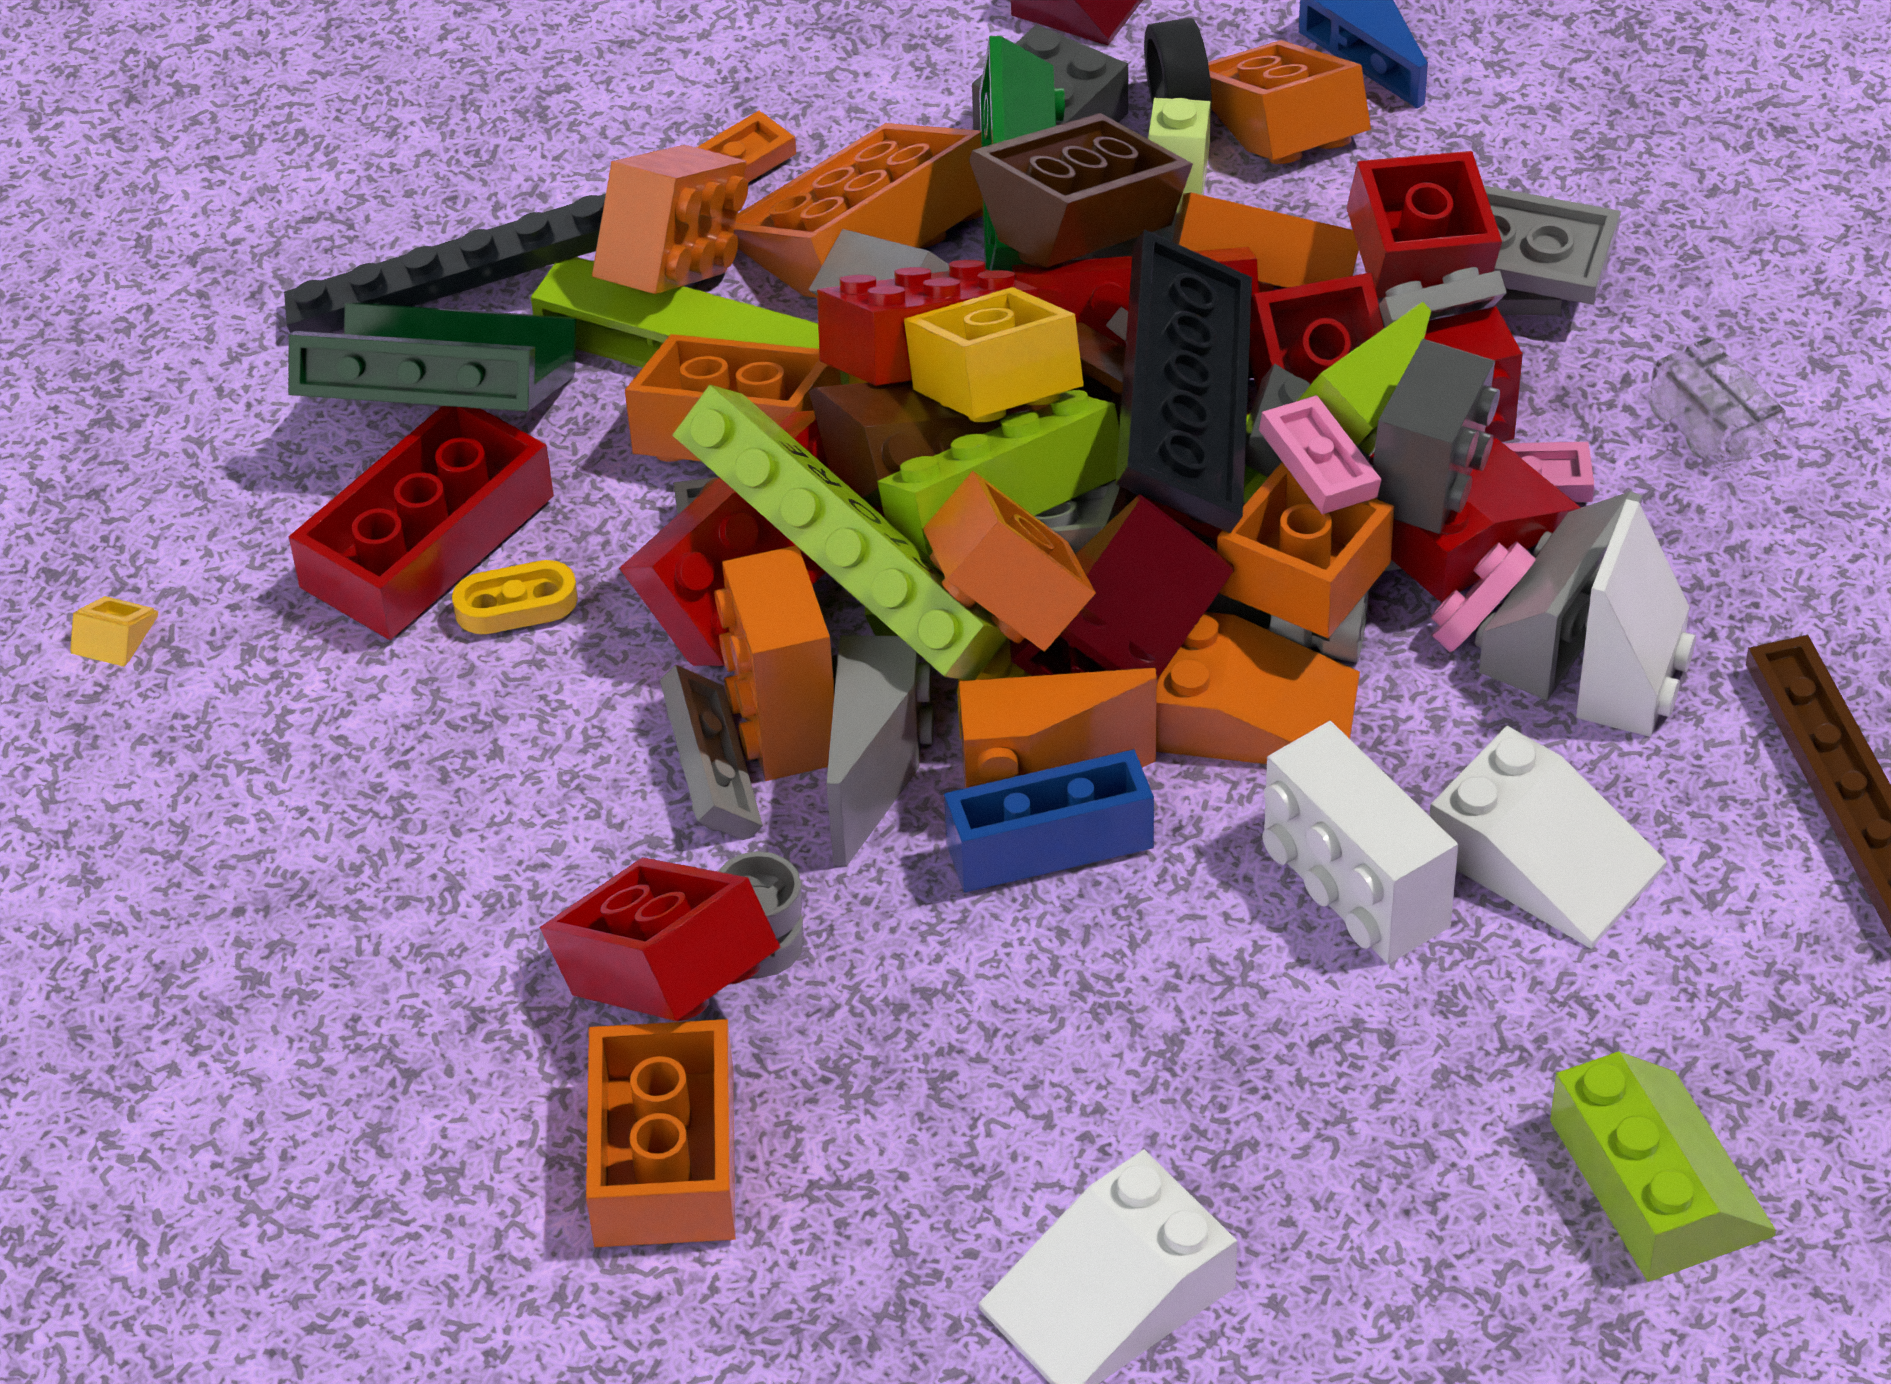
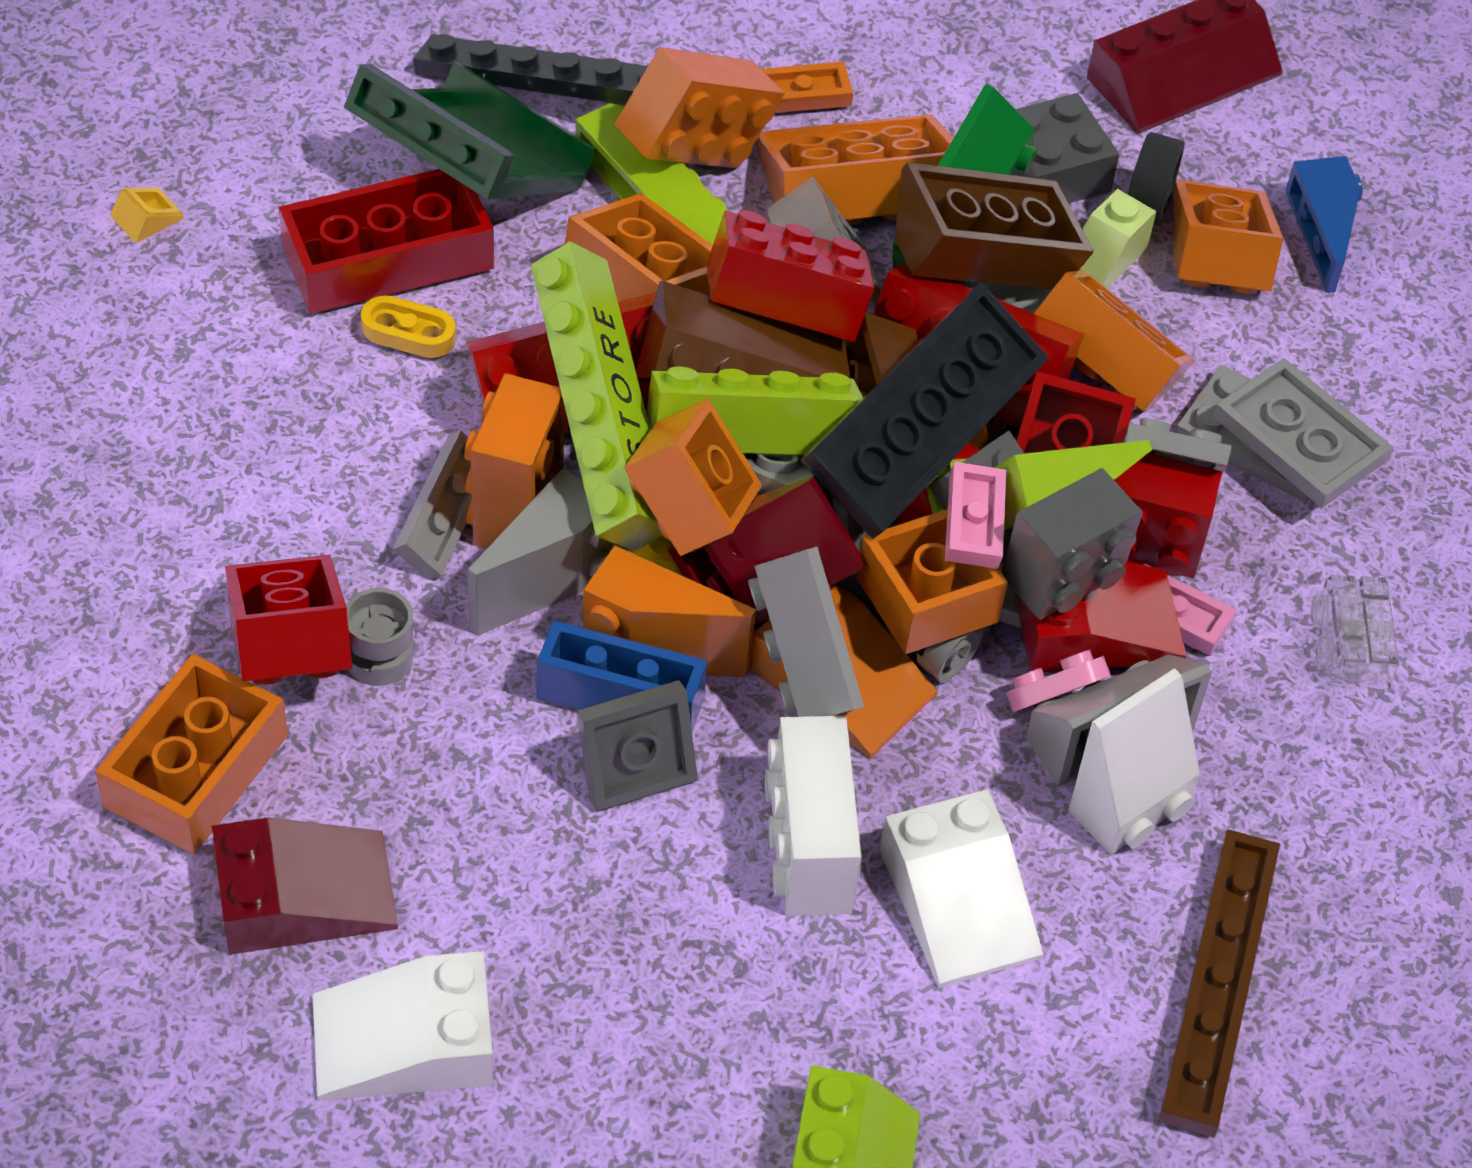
camera: 25 degrees right, 5 degrees up
(873, 1204) = (300, 883): none -> slope
(994, 353) = (799, 320): yellow brick -> none
(1124, 872) = (637, 745): none -> dark grey plate
(1235, 660) = (806, 635): none -> light grey slope
(1422, 219) = (1218, 380): red brick -> none

